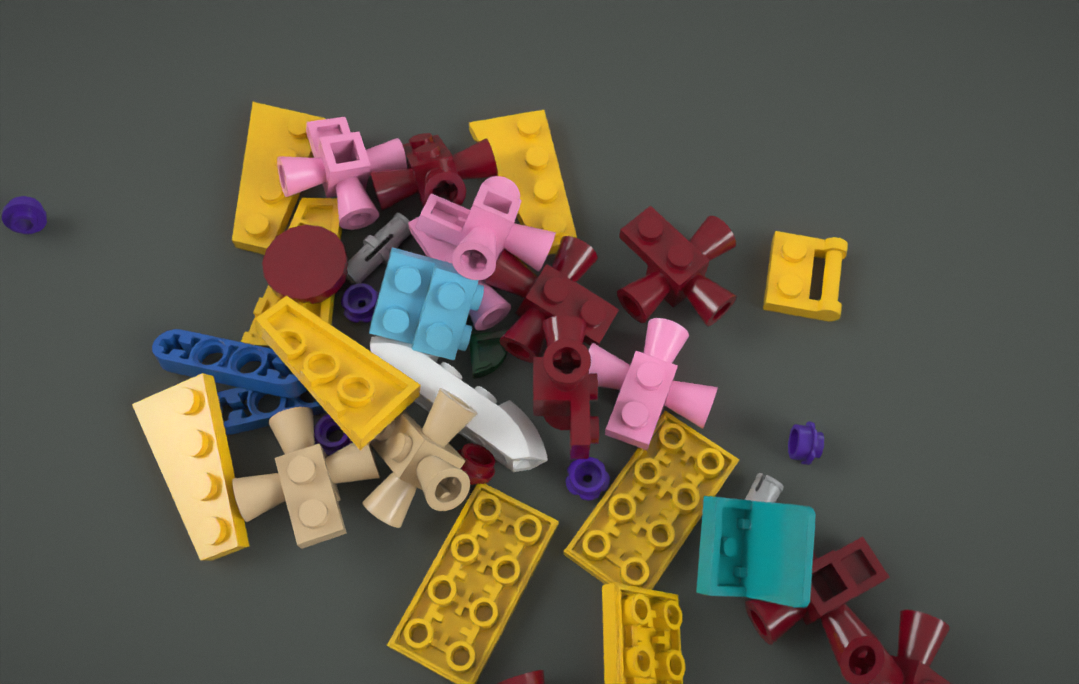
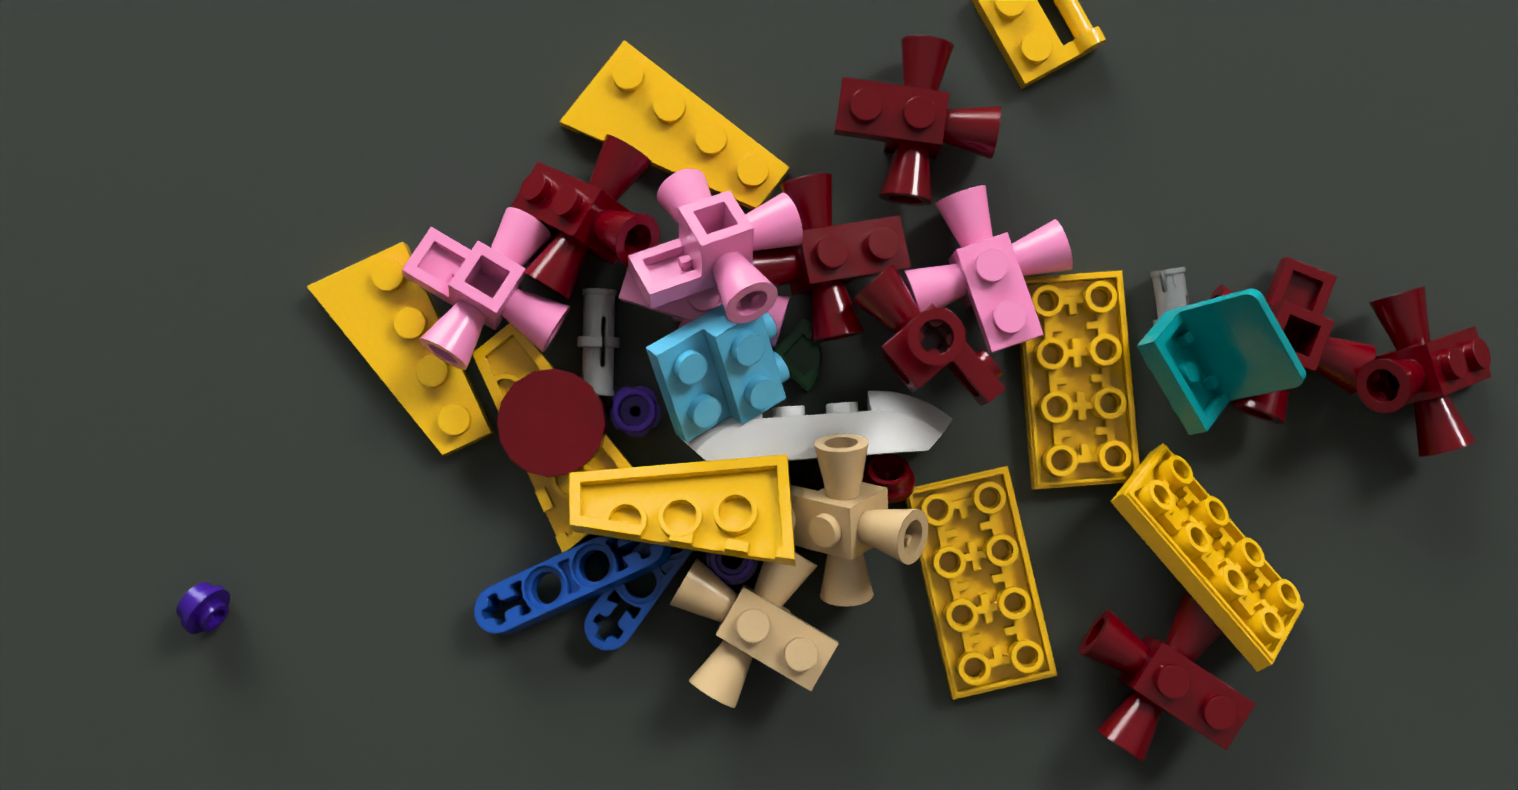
camera: 40 degrees left, 20 degrees up
(195, 459) = (624, 689): yellow wing -> none
(593, 468) = (1009, 414): dark purple plate -> none
(805, 443) = (1169, 203): dark purple plate -> none

